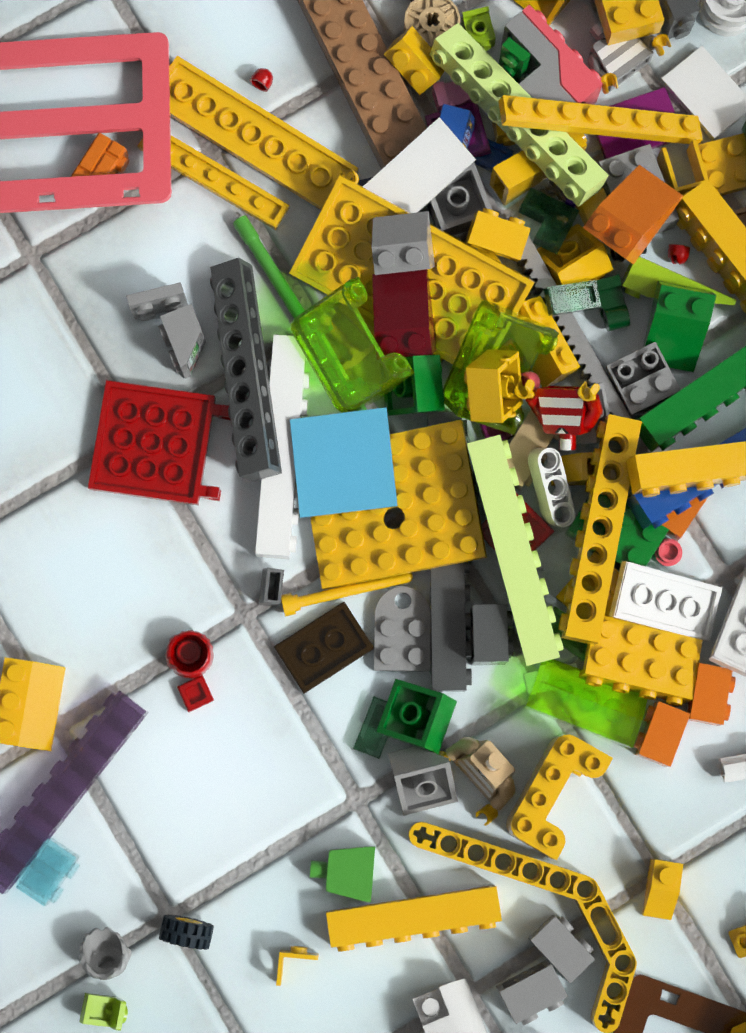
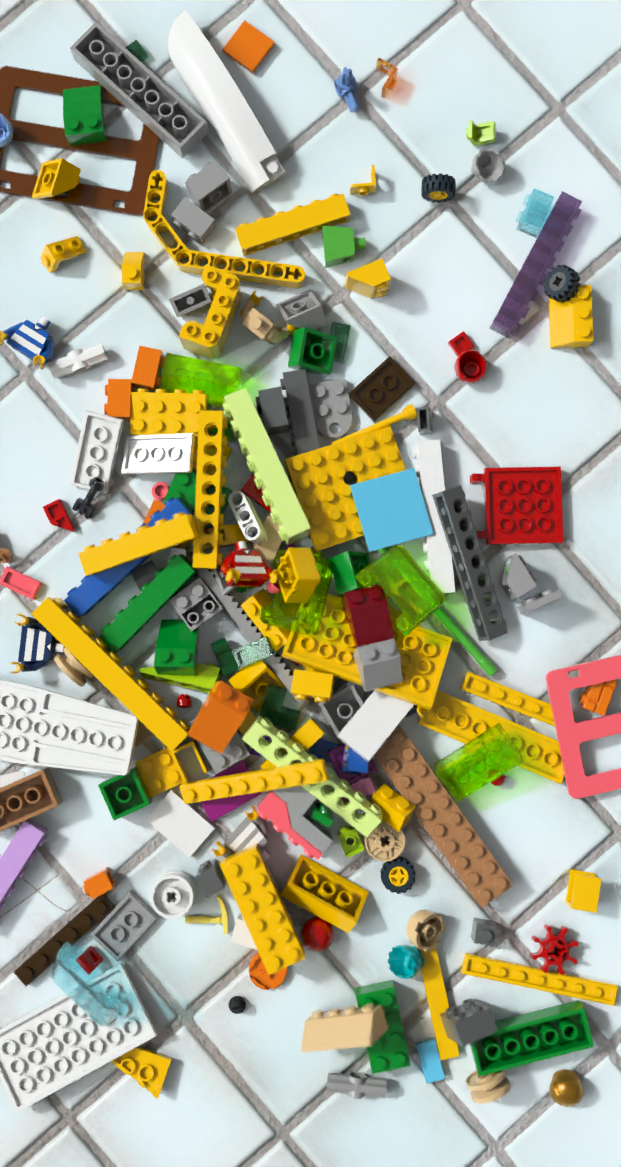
camera: 170 degrees right, 5 degrees up
(24, 743) = (568, 282): none -> black wheel
(286, 98) = (478, 762): none -> clear neon green brick
(312, 806) = (369, 280): none -> yellow slope
(586, 823) = (190, 300): none -> light grey brick
(707, 433) = (144, 574): none -> dark grey piece

